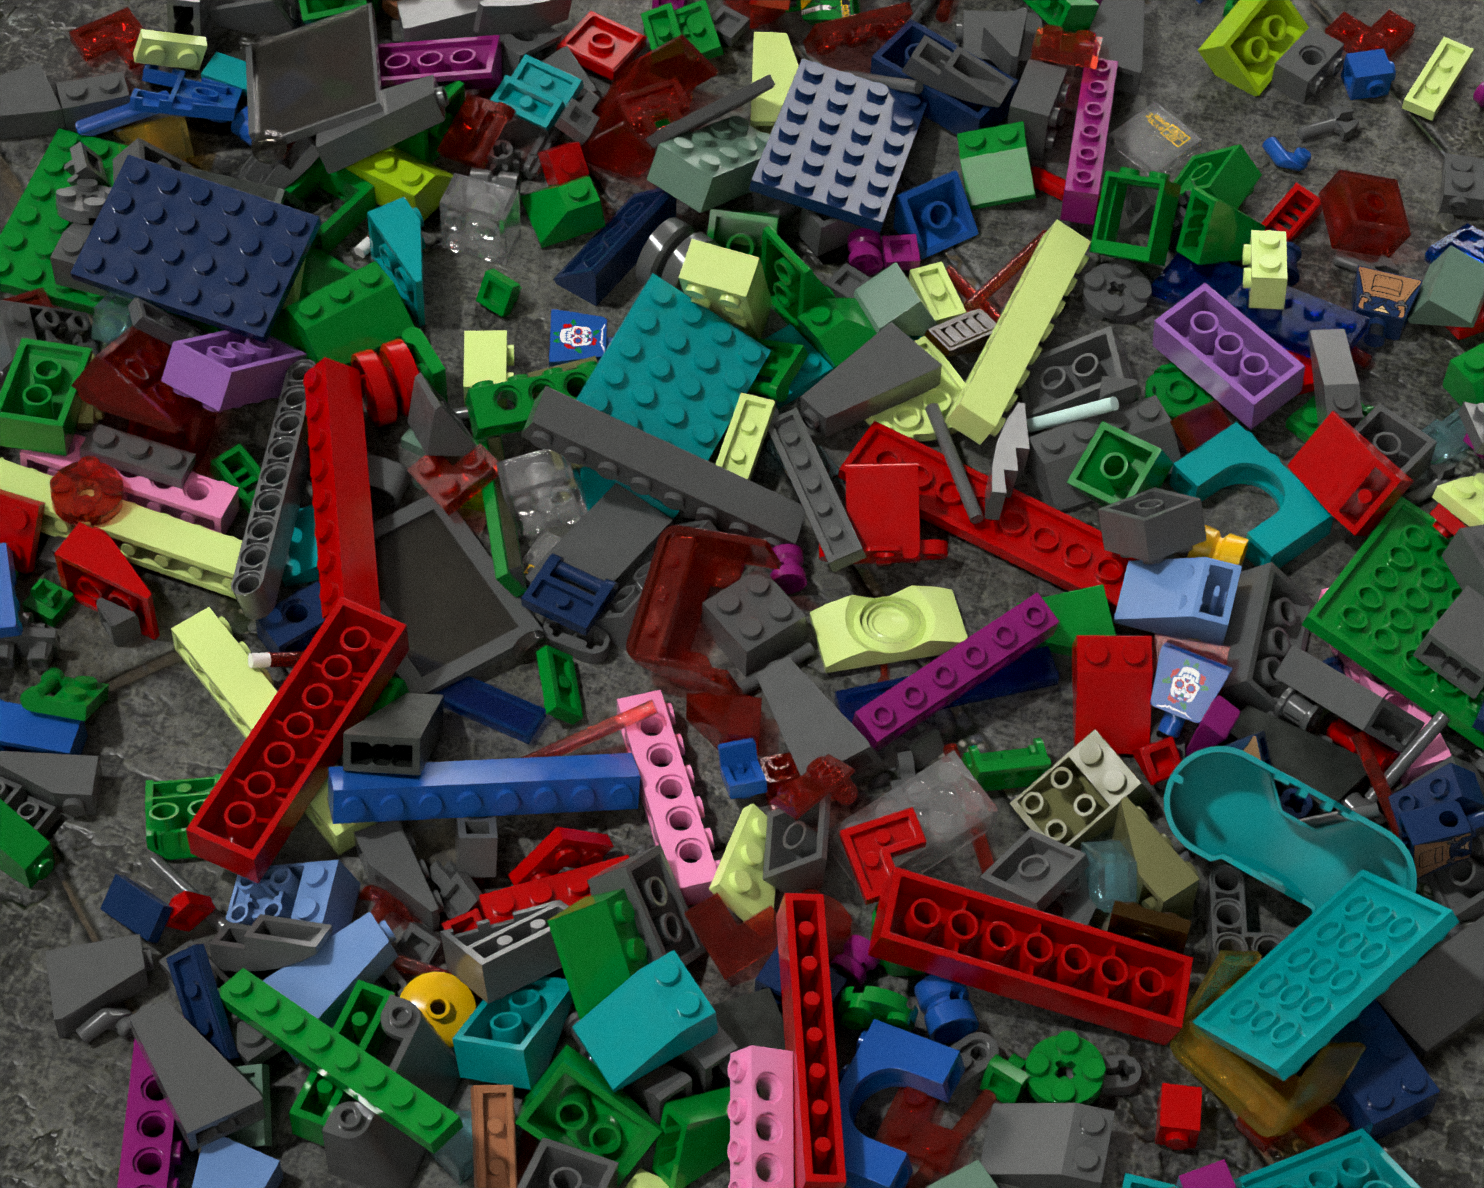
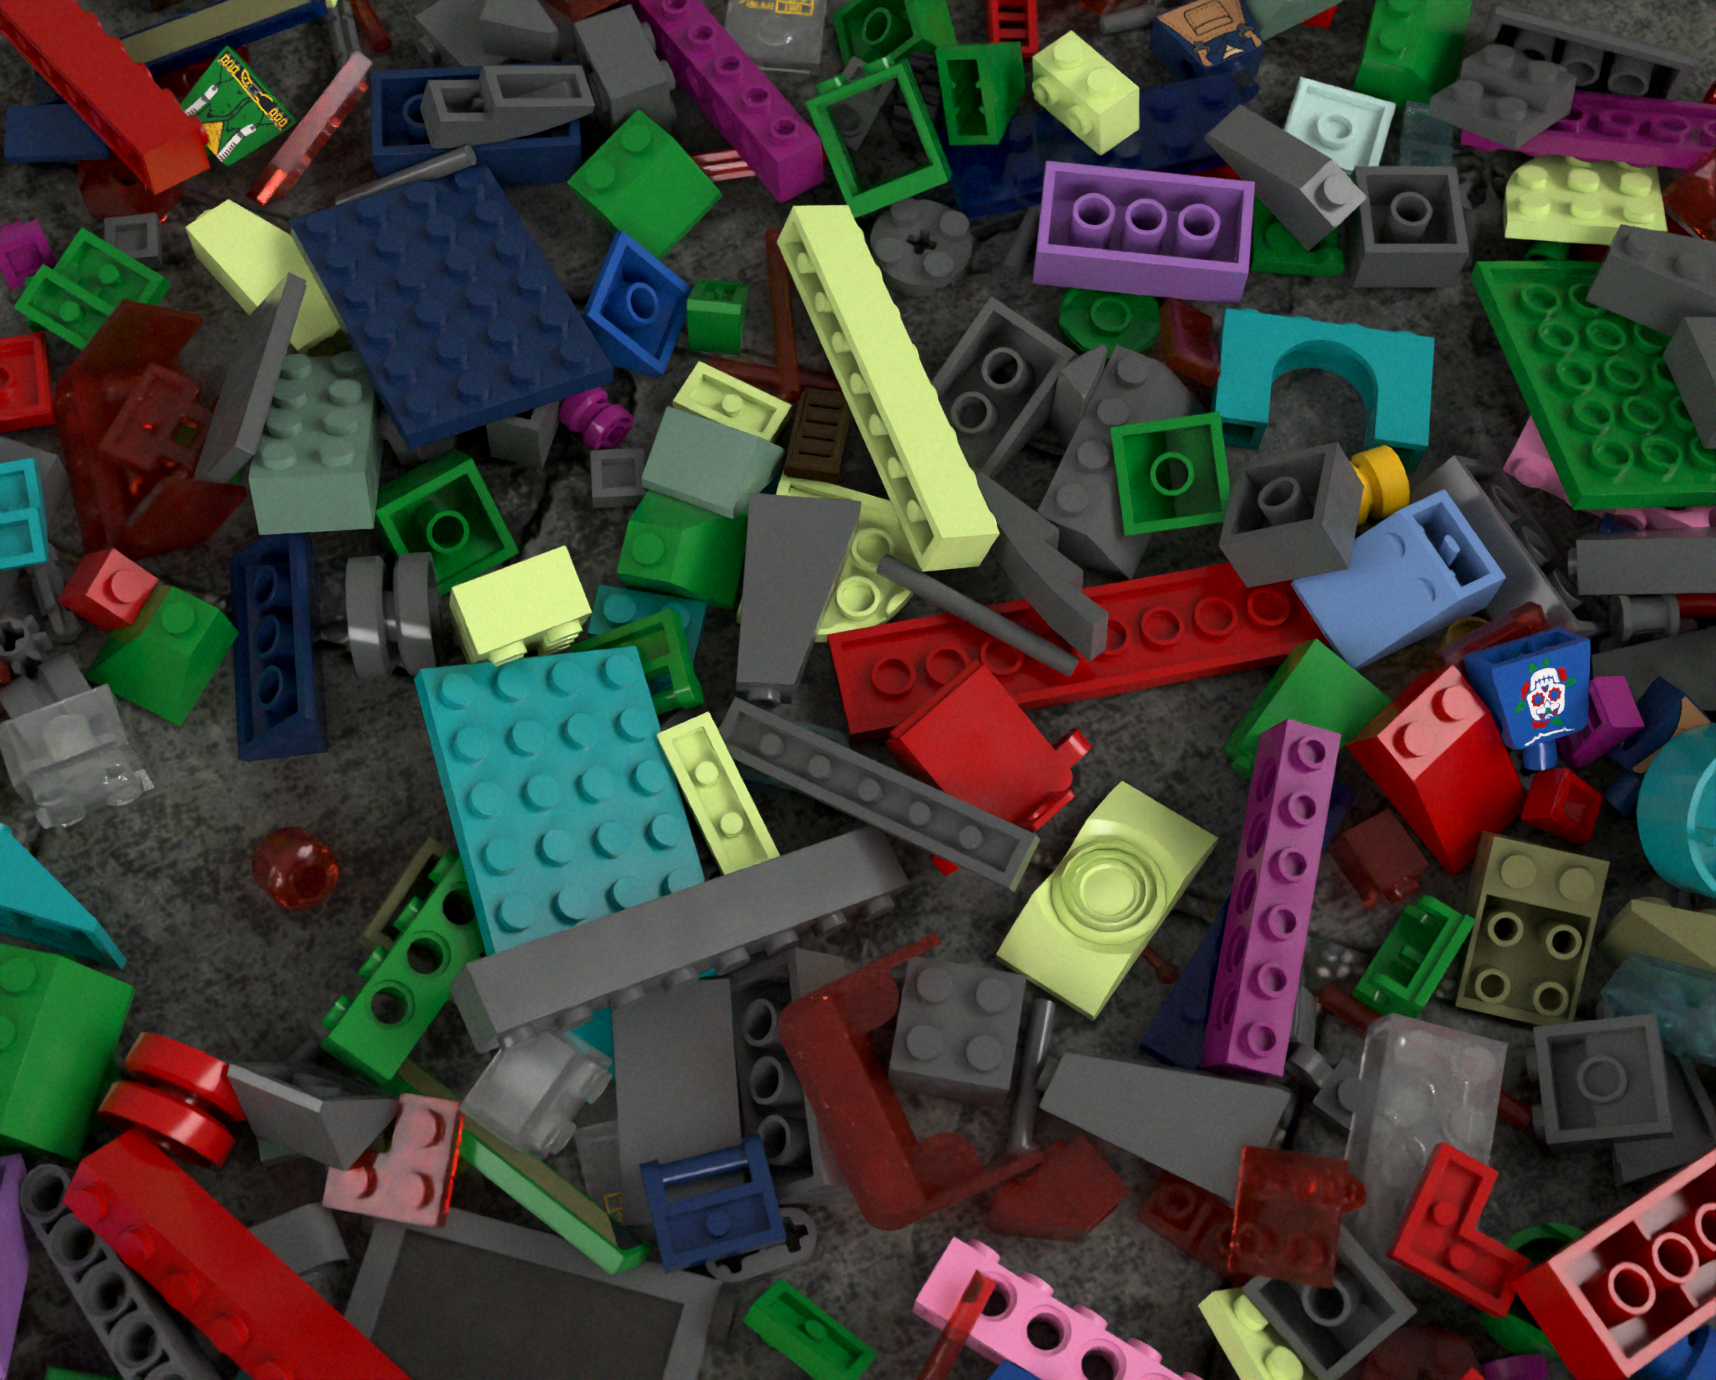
camera: 45 degrees left, 10 degrees up
(426, 359) = (208, 1032): green plate -> none
(487, 359) = (284, 963): yellowish green brick -> none
(498, 292) = (191, 840): green tile -> none
(529, 334) = (295, 868): none -> clear red head
(576, 337) = (373, 827): blue torso -> none
(578, 119) = (75, 516): dark grey plate -> none
(741, 769) = (1143, 1253): blue bracket -> none
(789, 280) = (552, 519): green slope -> none
(791, 576) = (916, 917): magenta wheel -> none
(902, 250) = (643, 387): magenta tile -> none
(974, 248) = (717, 316): none -> green slope
(1039, 711) = (1380, 860): none -> clear red brick
(1072, 414) = (1057, 439): light aqua bar -> none
(1349, 475) = (1419, 280): red slope -> none
(1406, 389) = (1340, 123): none -> light aqua plate
(1445, 521) = (1563, 256): red plate -> none

